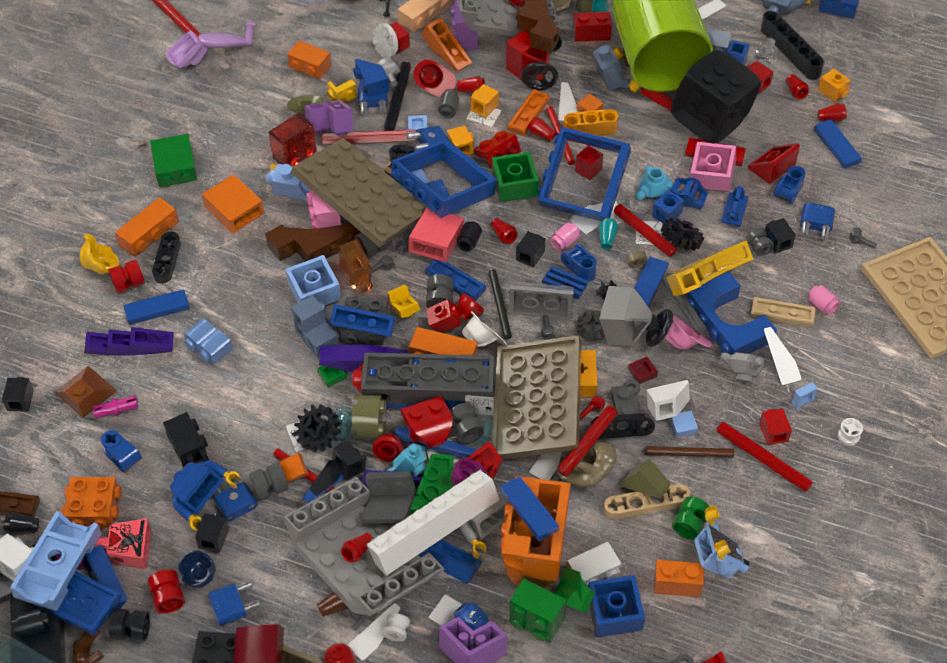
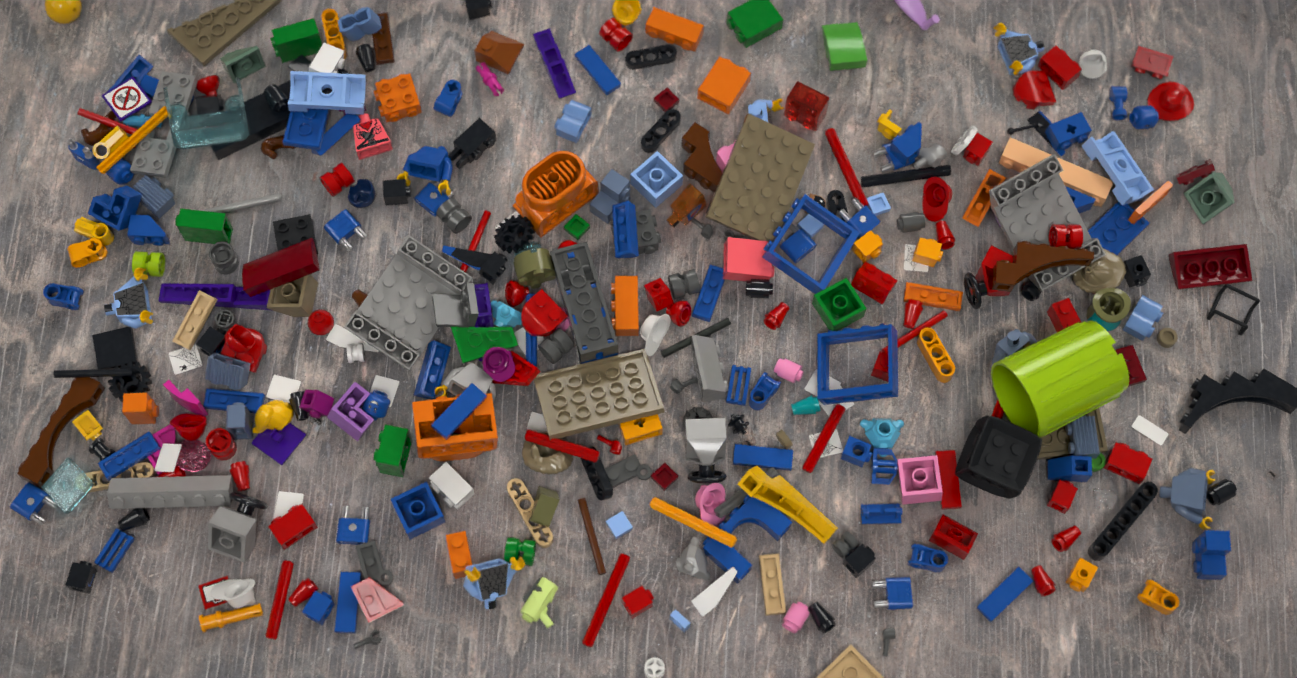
camera: 70 degrees right, 15 degrees up
(131, 625) = (302, 165): black wheel -> none
(222, 257) = (666, 99): none -> dark red tile
(239, 101) = (844, 46): none -> bright green slope
(256, 278) = (659, 139): none -> black beam
(286, 371) = (551, 202): none -> orange brick
(294, 467) = (473, 229): orange tile -> none
(297, 103) = (861, 101): olive dish -> none
(309, 59) = (918, 84): orange piece -> none
(330, 115) = (848, 124): medium lavender brick -> none
(350, 356) = (593, 235): dark purple slope -> none
(355, 548) = (404, 298): red cone -> none
(402, 302) = (665, 258): yellow bracket -> none
(433, 522) = (440, 346): white brick -> none
(488, 430) = (553, 365): clear light blue tile -> none
(530, 249) = (763, 344): black brick -> none
(567, 101) = (956, 330): white sticker -> none
(574, 590) = (414, 473): green slope -> none
(589, 103) = (963, 349): orange tile -> none
(668, 399) = (634, 504): white slope -> none
(682, 234) = (823, 473): black gear -> none
(707, 349) = (693, 522): none -> light orange axle
(741, 24) = (1128, 462): none -> red brick
(750, 517) = (537, 600): none -> yellowish green piece
(830, 280) = (823, 620): none -> black cone
(868, 42) = (1157, 597): none -> light orange piece

